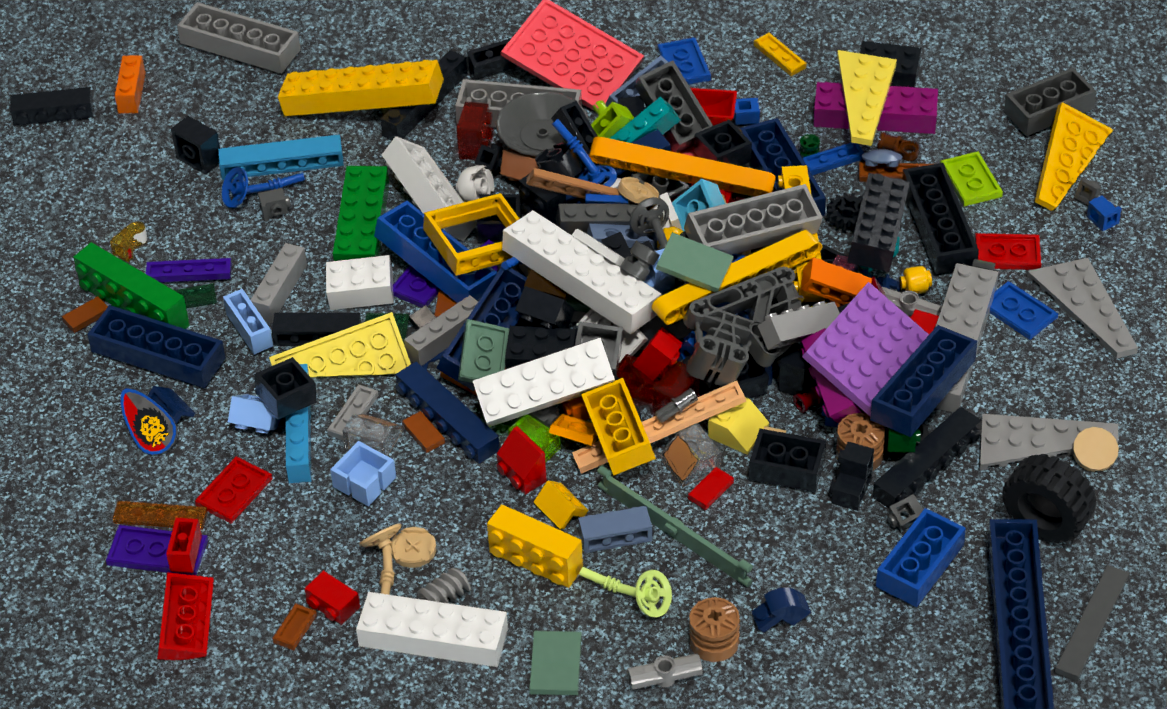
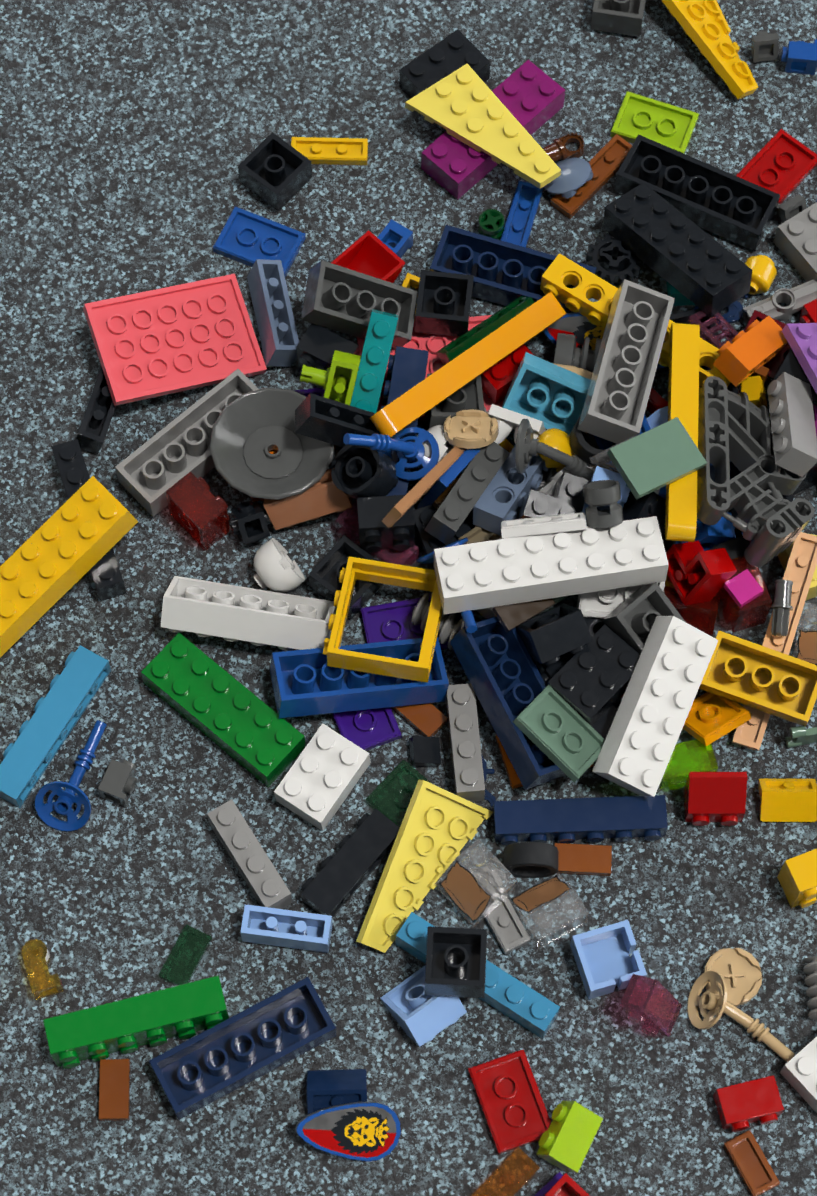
camera: 55 degrees left, 20 degrees up
(190, 270) = (143, 937): dark purple plate -> none
(231, 521) = (569, 1136): none -> lime brick
(349, 506) = (650, 1006): none -> clear pink brick
(357, 385) = (476, 883): none -> slope
(394, 400) = (531, 859): none -> black tyre
(668, 377) = (743, 588): none -> dark pink tile
(733, 35) = (275, 171): none -> black brick

